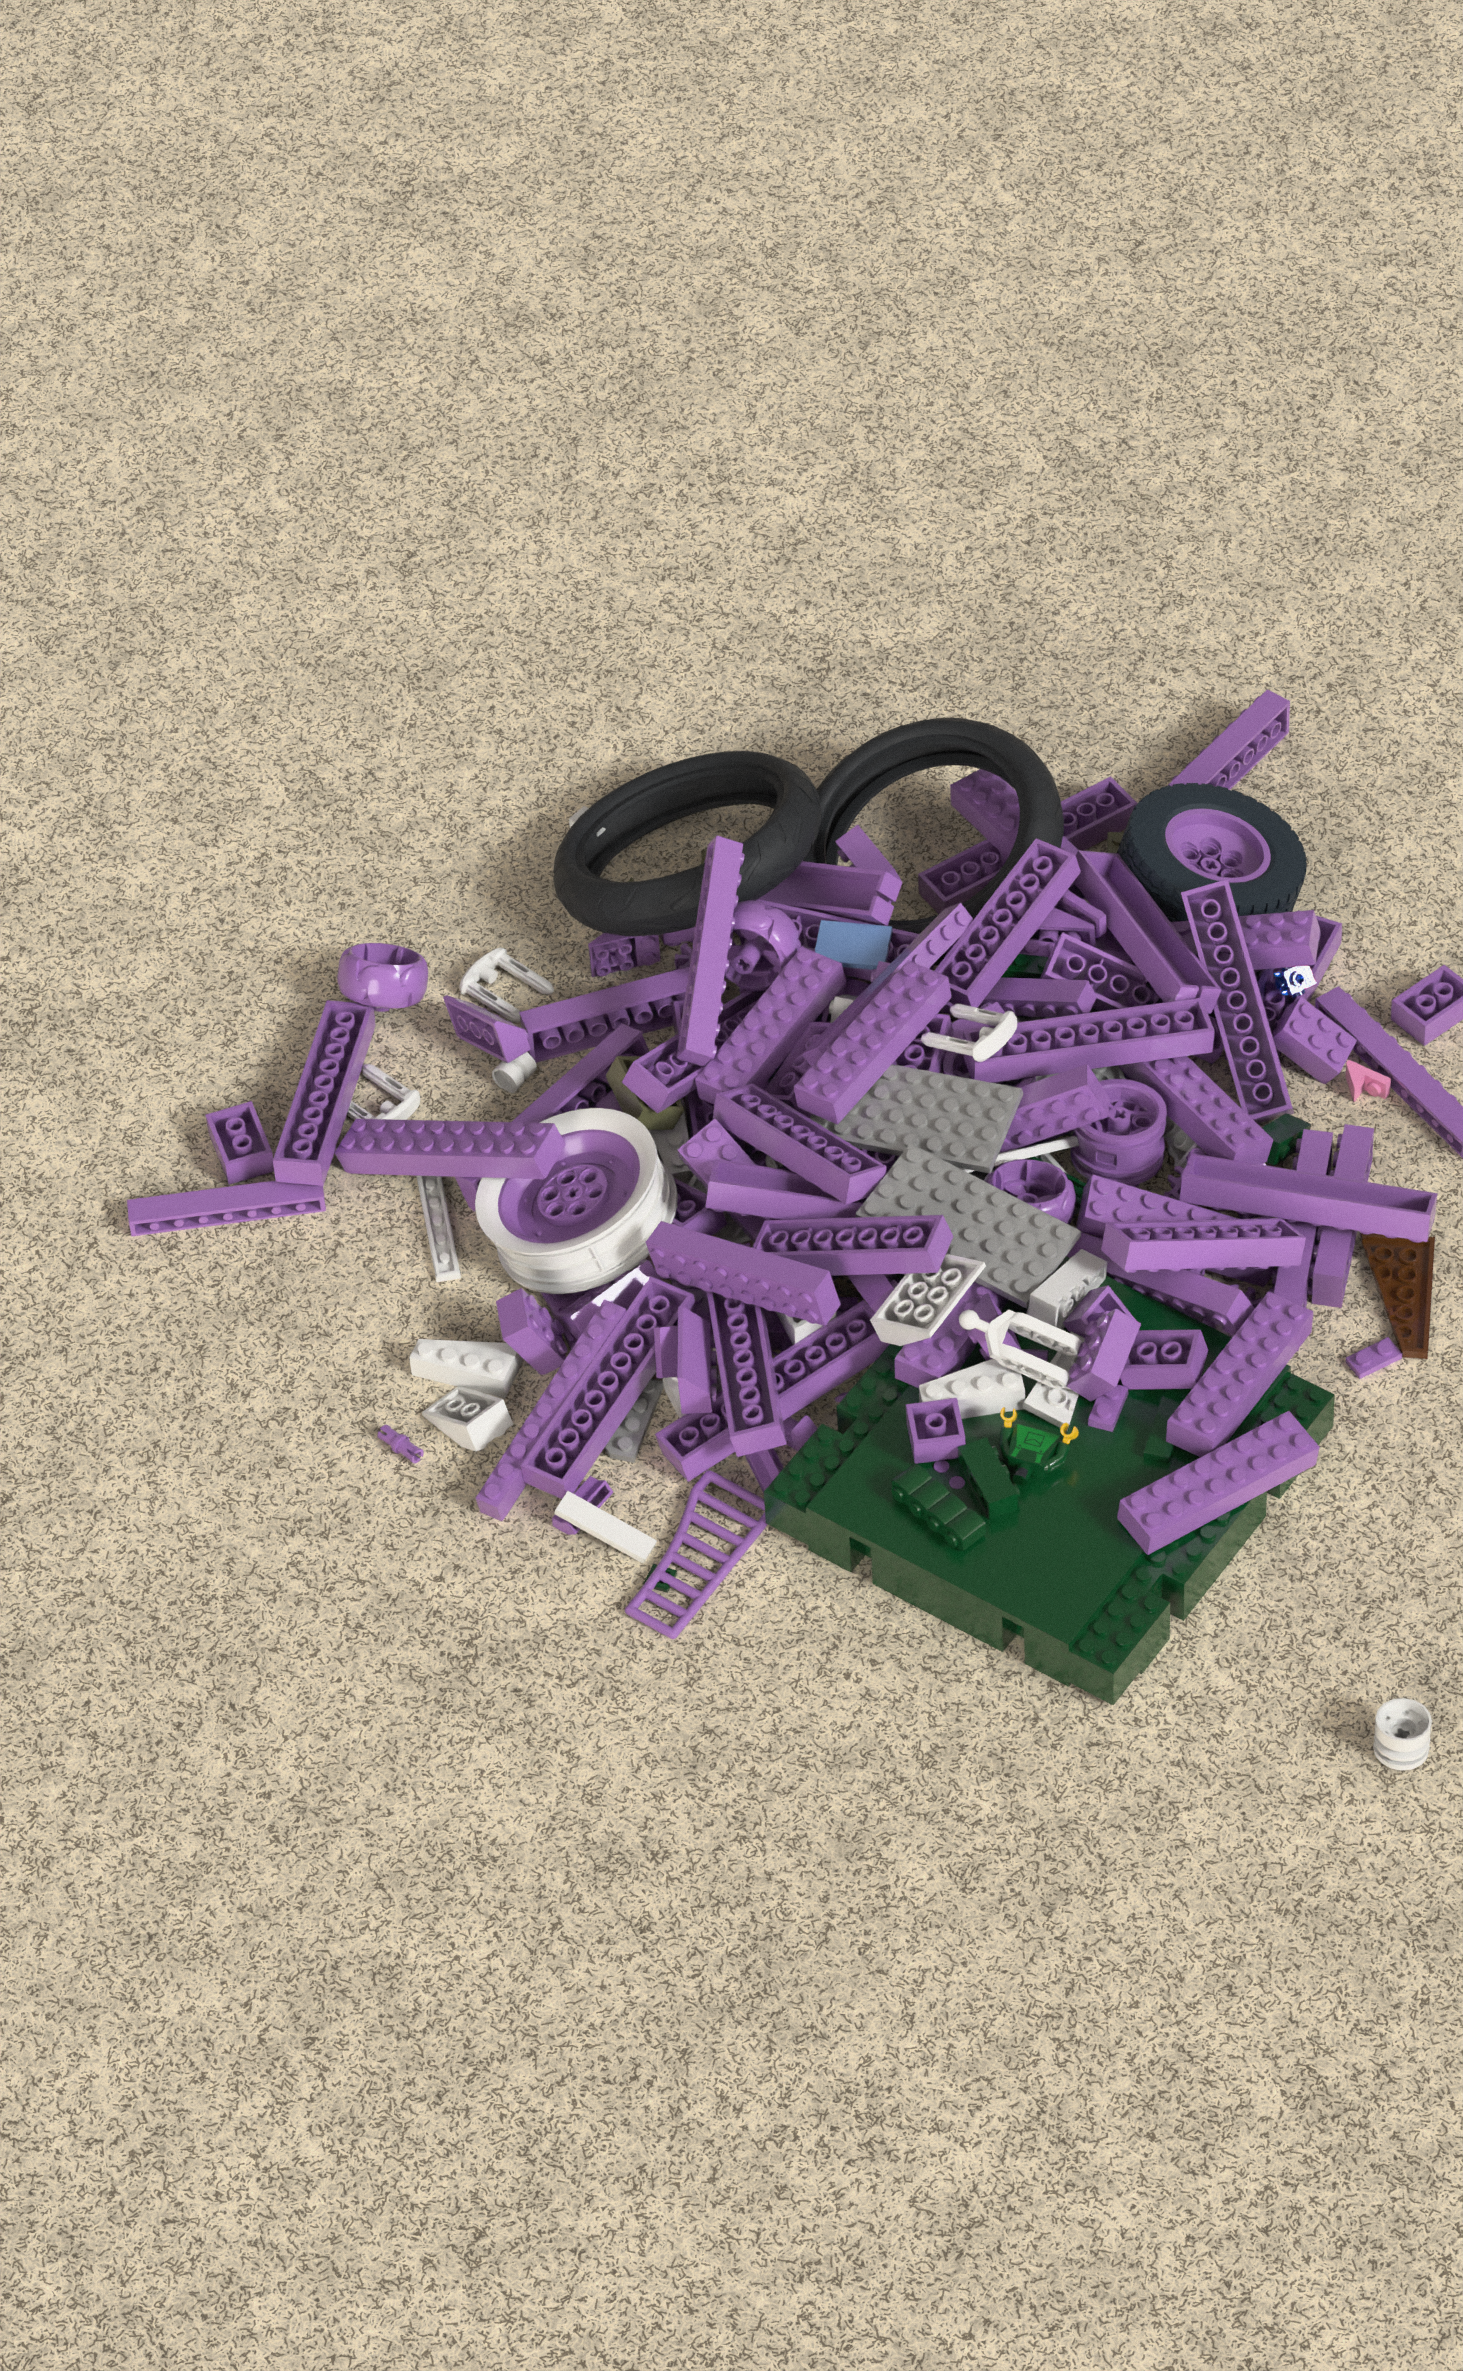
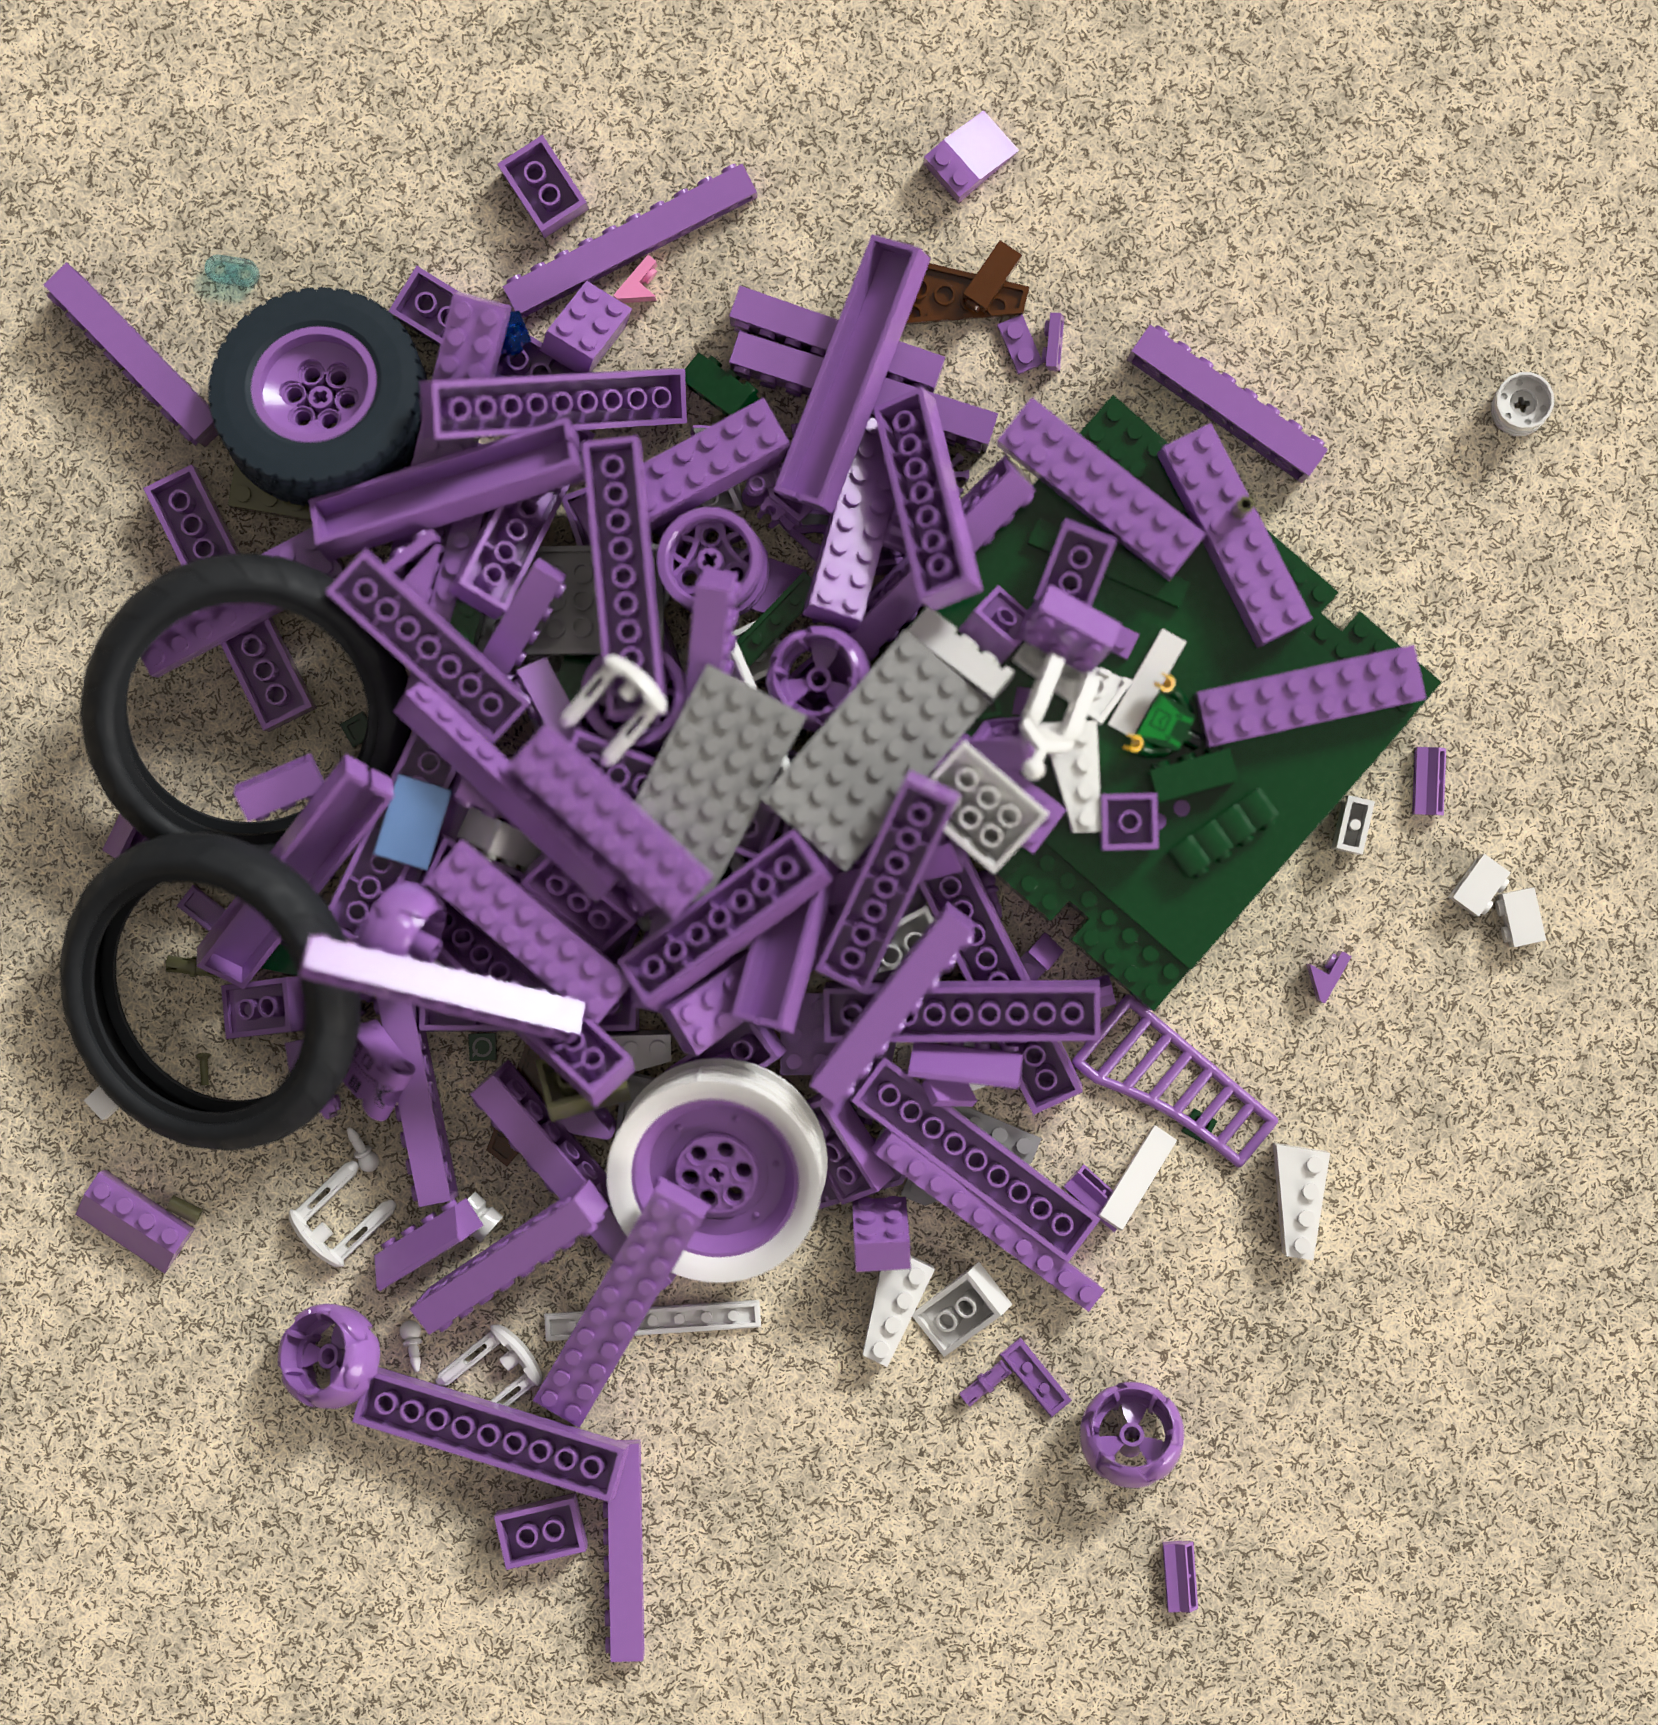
camera: 85 degrees left, 40 degrees up
(230, 1608) = (1180, 1576): none -> medium lavender piece
(353, 1557) = (1159, 1455): none -> medium lavender wheel
(406, 1045) = (410, 1332): none -> white bar
(409, 1482) = (1035, 1377): none -> medium lavender tile
(482, 1071) = (510, 1257): none -> medium lavender brick
(487, 855) = (134, 1220): none -> medium lavender slope
(498, 887) = (184, 1209): none -> olive piece
(560, 995) = (367, 1159): none -> white bar
(601, 1655) = (1300, 1194): none -> white wedge
(636, 963) = (377, 1071): none -> medium lavender piece
(814, 1653) = (1323, 982): none -> medium lavender slope
(899, 1801) = (1520, 917): none -> white brick
(924, 1763) = (1480, 885): none -> white brick
(966, 1651) = (1353, 825): none -> white brick
(1020, 1713) = (1429, 781): none -> medium lavender piece
(1078, 1555) = (1309, 696): none -> medium lavender brick
(1085, 1445) = (1142, 689): none -> white tile
(1241, 1460) = (1248, 505): none -> piece
(1312, 821) = (232, 270): none -> clear light blue plate
(1350, 1504) = (1227, 403): none -> medium lavender brick
(1381, 1378) = (1054, 330): none -> medium lavender plate
(1427, 1316) = (991, 277): none -> reddish brown brick

